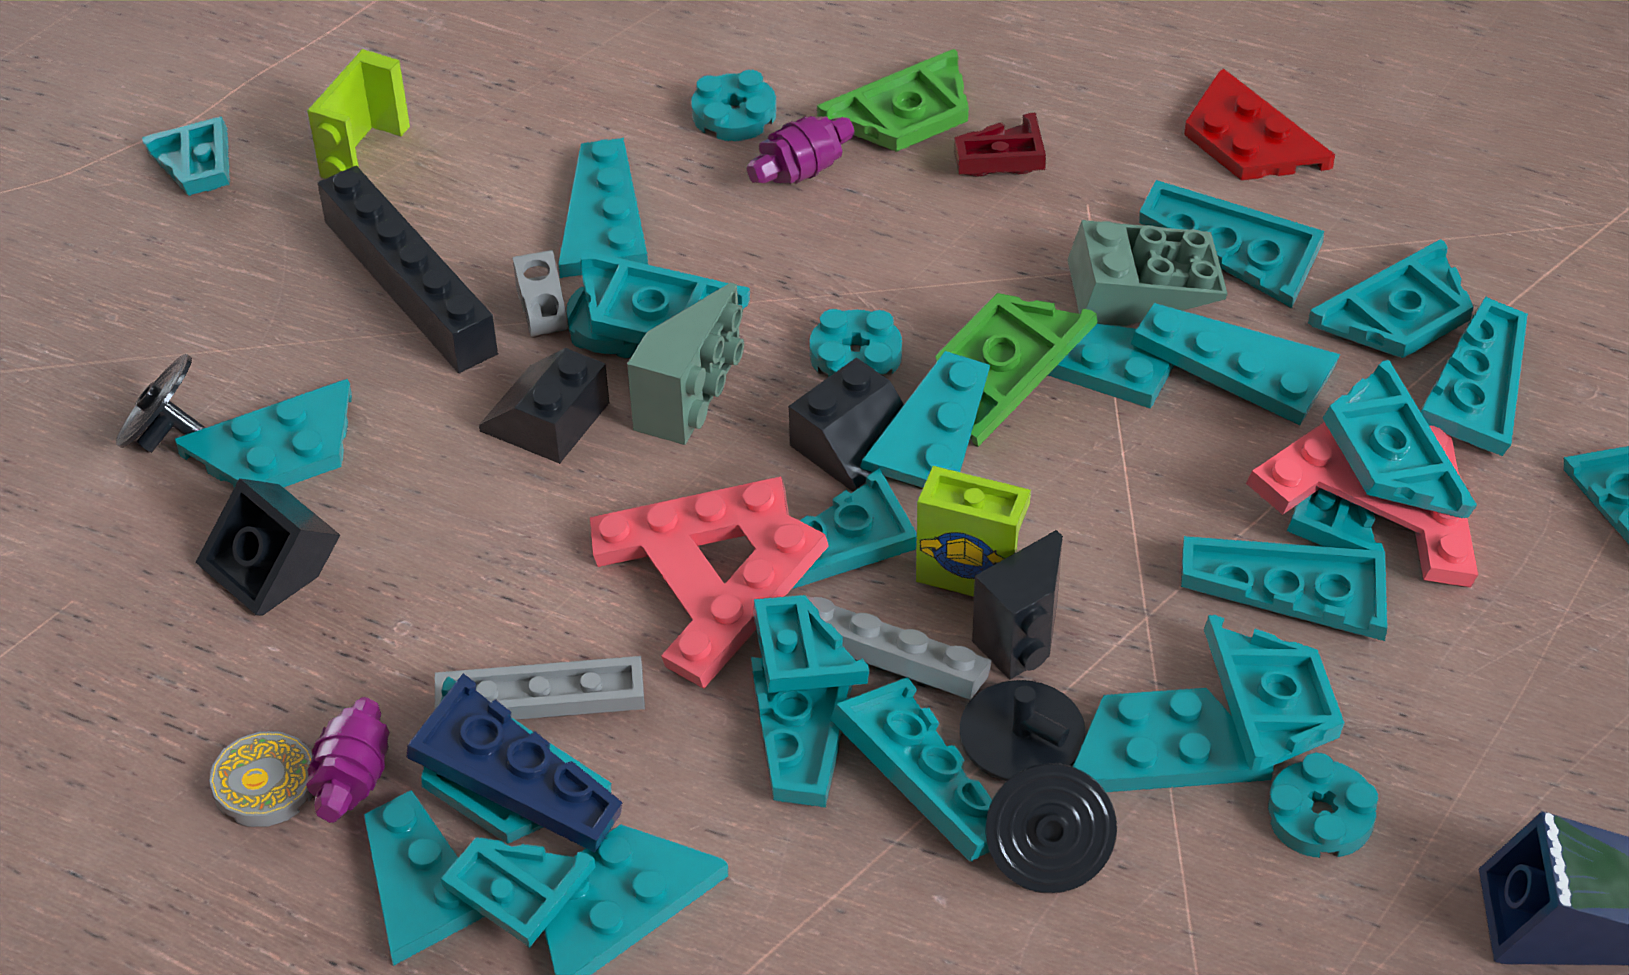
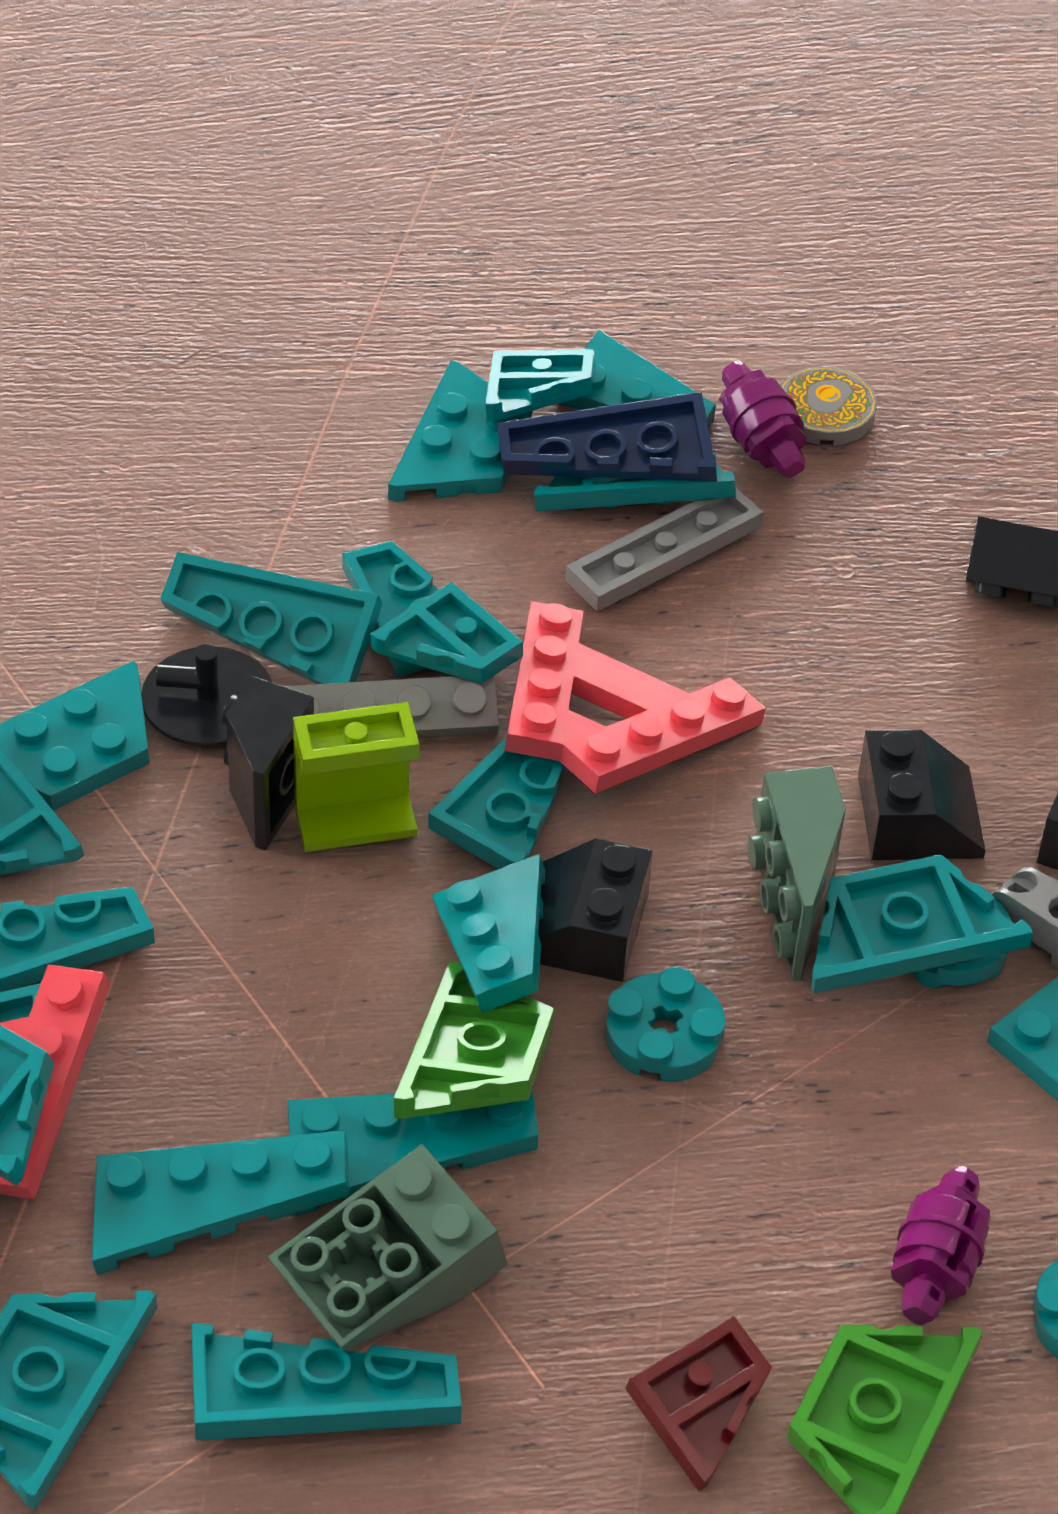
camera: 145 degrees right, 0 degrees up
(1051, 828) = (132, 604): black shield -> none

